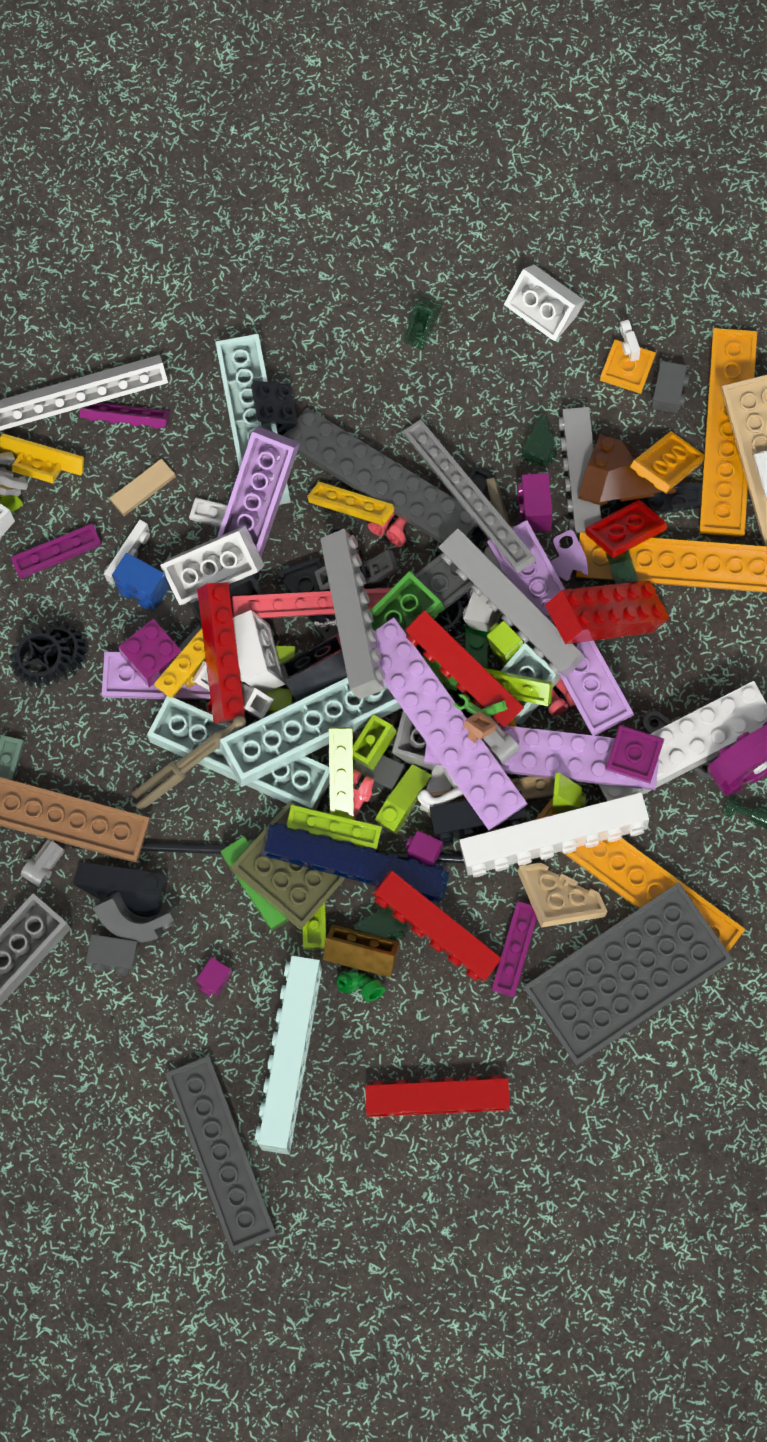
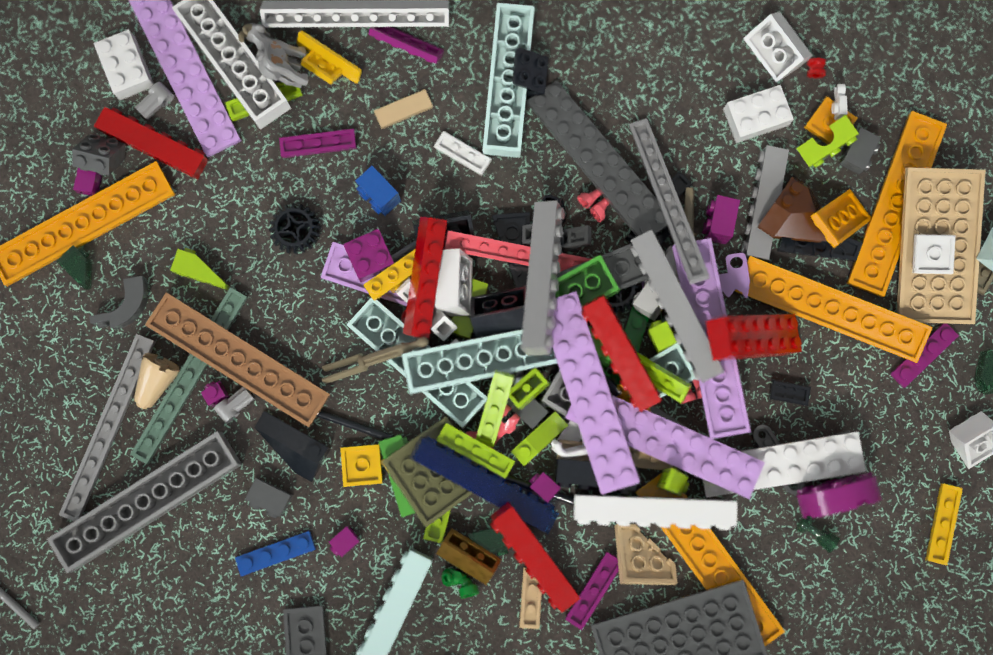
camera: 10 degrees right, 10 degrees up
(16, 856) = (214, 393): none -> magenta brick
(48, 652) = (269, 235): black gear -> none
(129, 926) = (289, 479): dark grey arch -> none
(137, 1016) = (275, 553): none -> blue plate
(138, 536) = (388, 150): white plate -> none
(208, 888) = (361, 465): none -> yellow plate
(215, 561) = (440, 196): white brick -> none
(260, 485) = (491, 150): lavender brick -> none
(351, 503) = (569, 175): yellow plate -> none
(422, 322) = (672, 34): clear green slope -> none
(446, 983) = (530, 603): none -> tan tile
(473, 709) = (638, 395): bright green arm -> none
(479, 726) = (620, 409): nougat tile -> none
(501, 745) = (632, 425): light grey piece -> none
(540, 445) = (739, 170): clear green slope -> none
(543, 379) = (758, 113): none -> white brick
(593, 312) = (816, 68): none -> red wheel
(621, 403) = (844, 134): none -> lime arch
(622, 568) = (775, 294): clear green slope -> none
(626, 528) = (789, 265): red plate -> none
(634, 754) = (741, 467): magenta tile -> none
(671, 669) = (789, 393): none -> black plate

